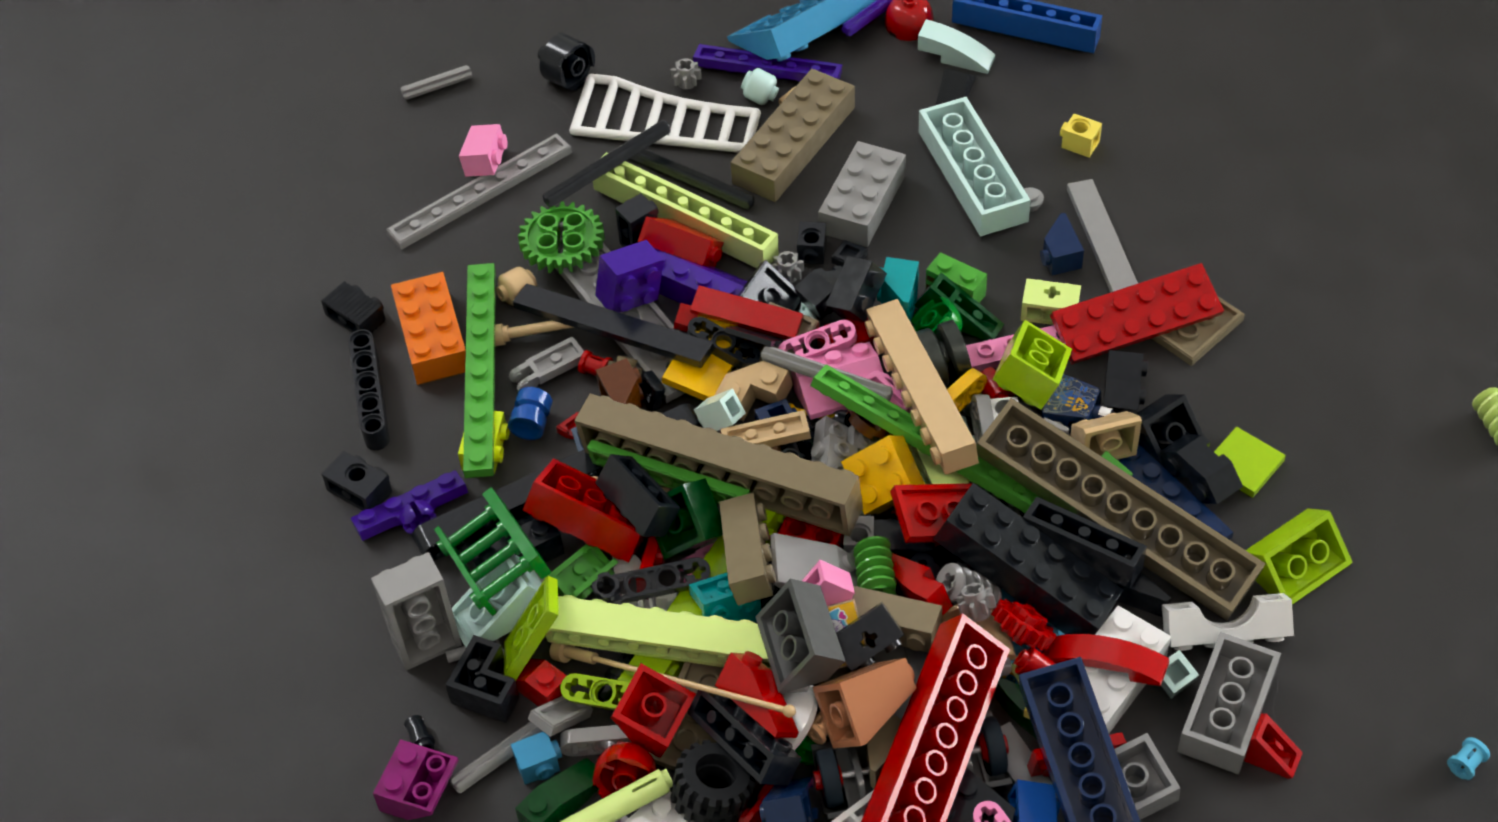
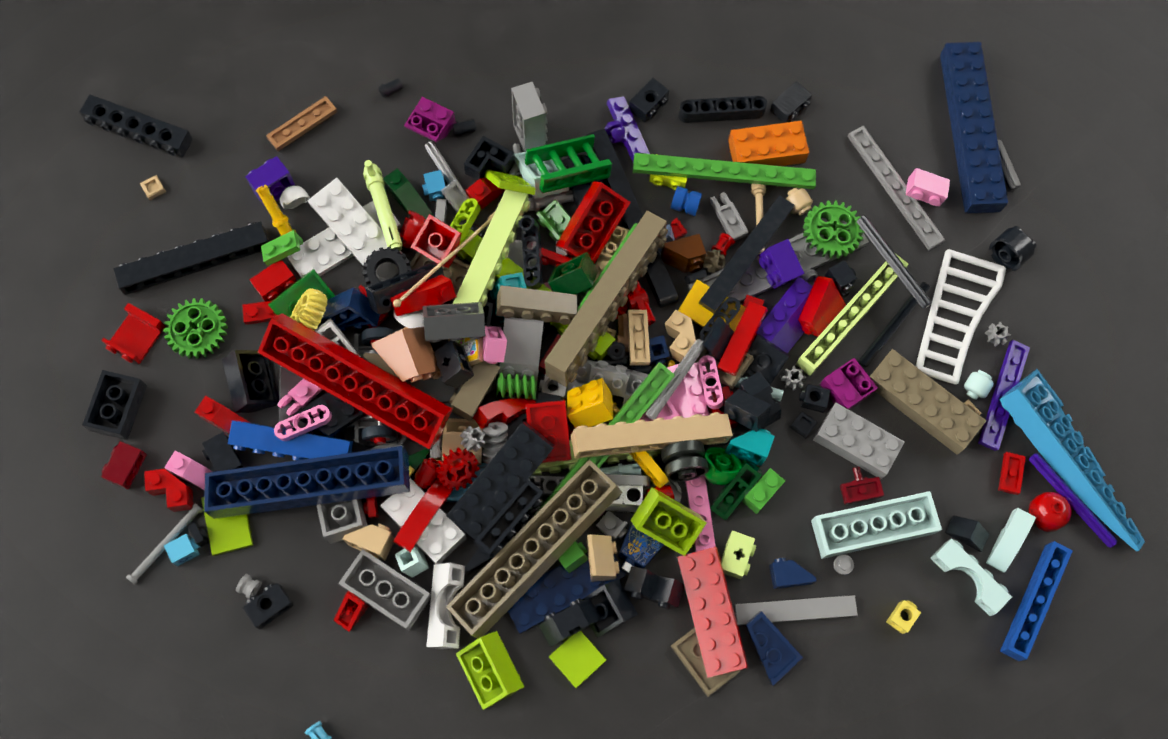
camera: 90 degrees right, 20 degrees up
(381, 113) = (973, 128): none -> dark blue brick
(637, 496) = (586, 245): black brick -> none
(720, 410) = (661, 311): light aqua brick -> none
(785, 205) = (849, 384): none -> magenta slope
(869, 52) = (1012, 473): none -> red plate
(925, 187) = (861, 488): none -> dark red plate
(1027, 62) = (990, 594): none -> light aqua arch
(1162, 253) = (772, 647): none -> dark blue wing
(1163, 720) = (372, 539): none -> tan slope

